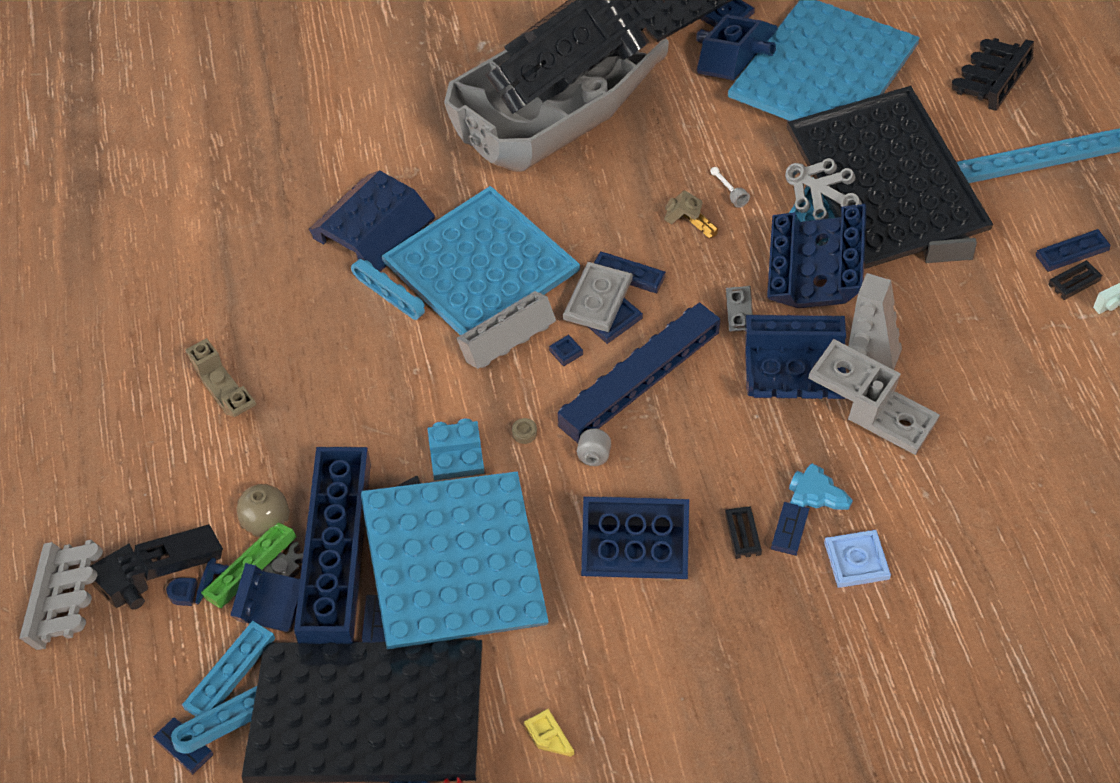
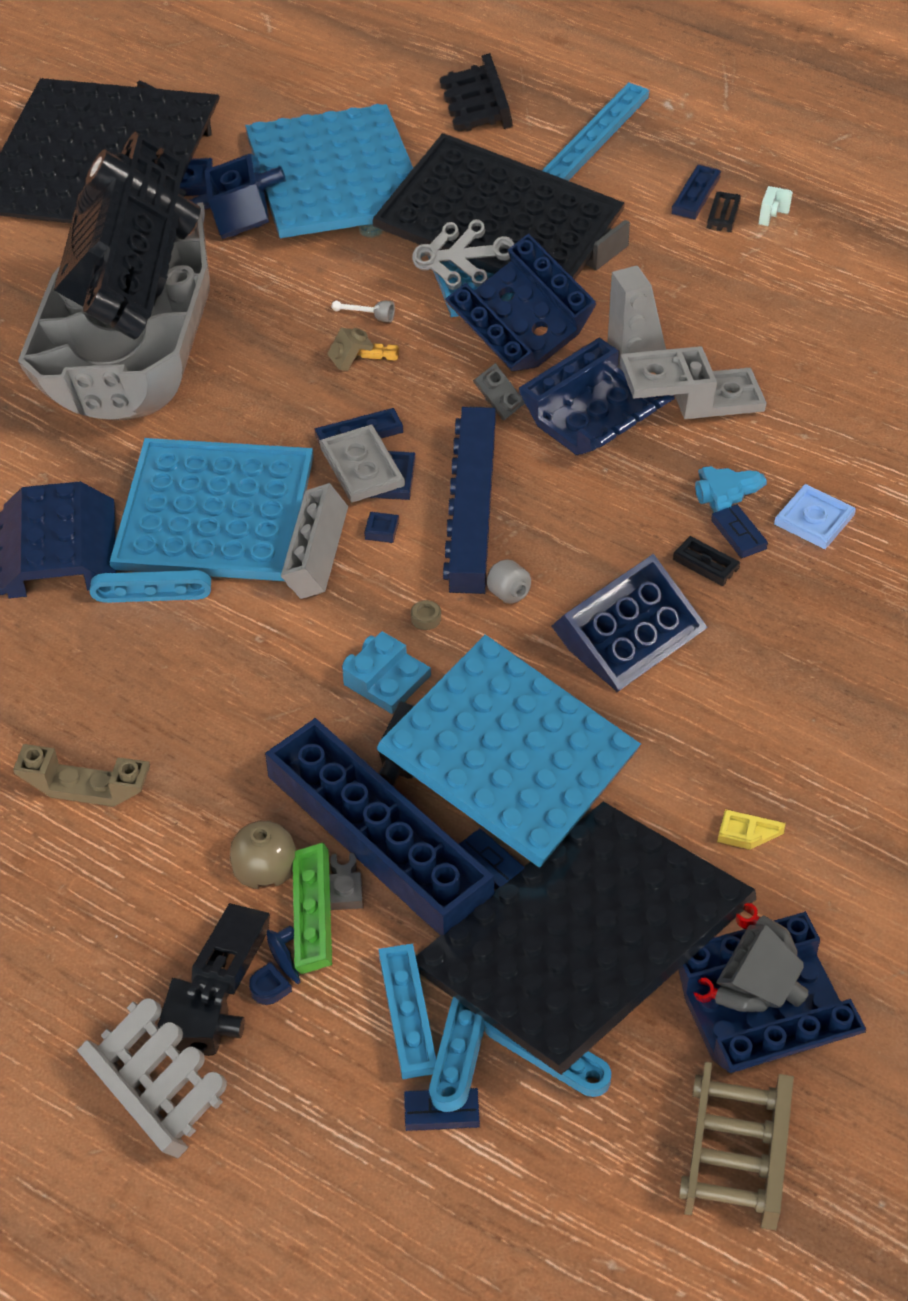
camera: 45 degrees left, 5 degrees down
(266, 599) = (371, 918): dark blue bracket -> none

